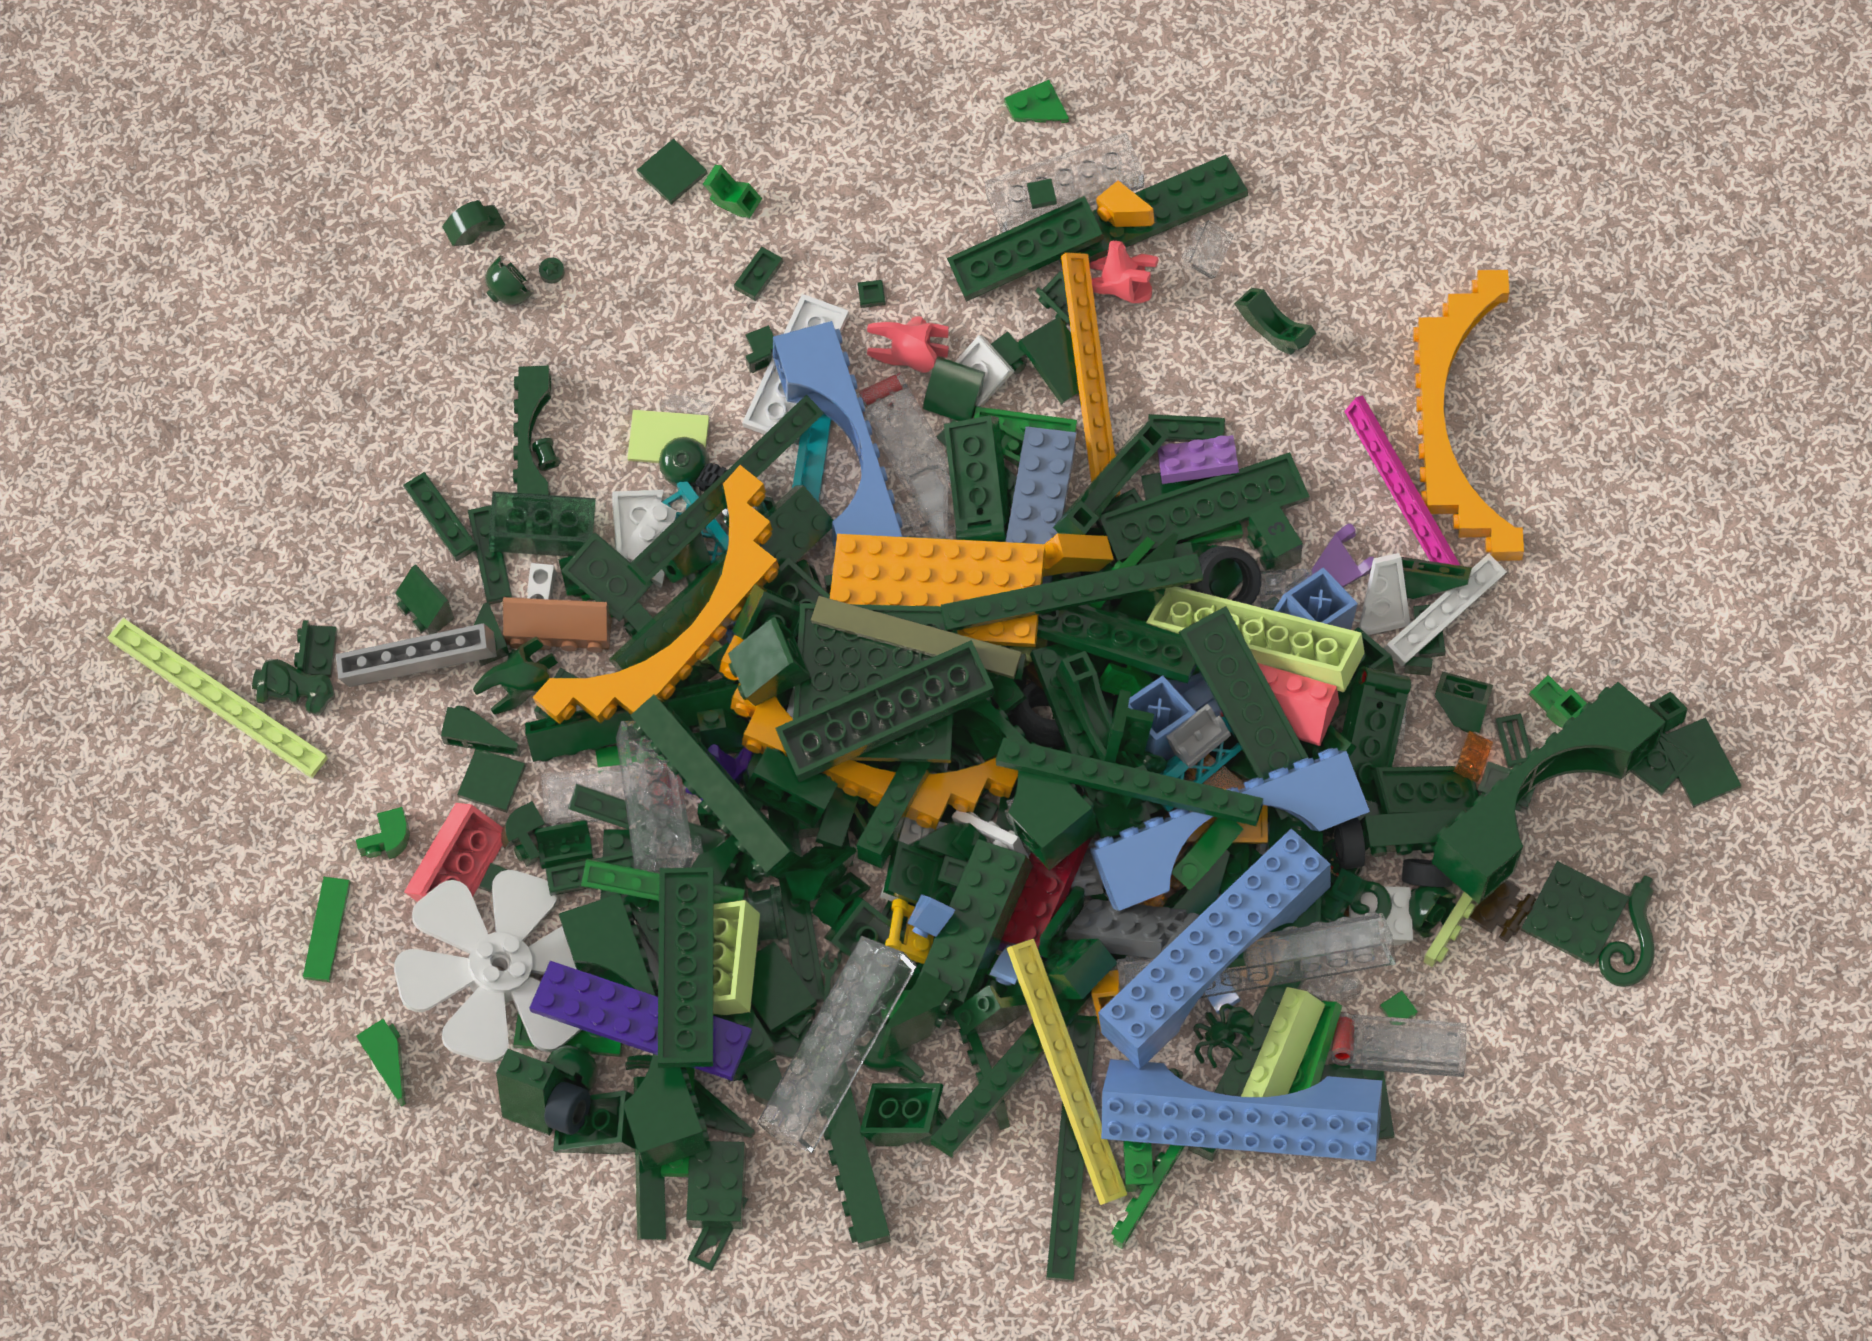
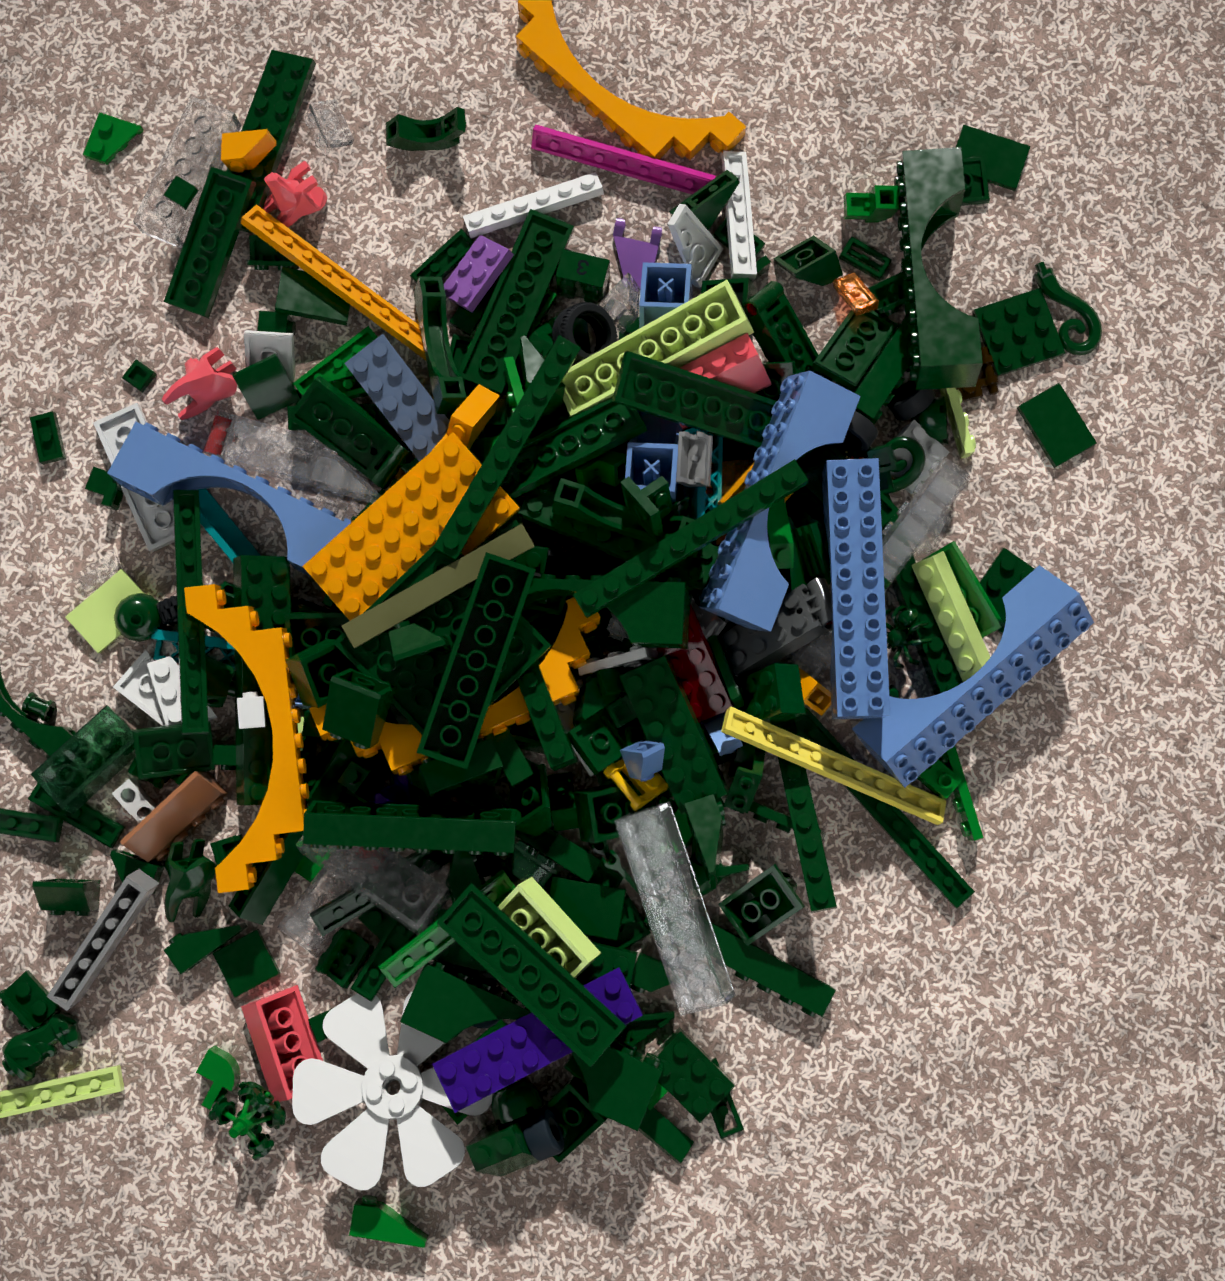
camera: 50 degrees left, 15 degrees up
(326, 929) = (247, 1179): green tile -> none
(373, 879) = (249, 1122): none -> dark green plant
(517, 832) = (300, 978): dark green brick -> none
(692, 598) = (251, 711): none -> white brick
(803, 943) = (573, 858): none -> dark green tile
(855, 655) = (413, 641): none -> dark green slope
(1224, 879) = (812, 549): none -> dark green tile
(1304, 455) = (540, 201): none -> white plate
(1398, 1007) = (979, 505): green tile -> none
(1400, 1045) = (1013, 526): clear hinge -> none
(1527, 1011) = (1056, 425): none -> dark green tile
(1670, 710) = (941, 138): dark green plate -> none

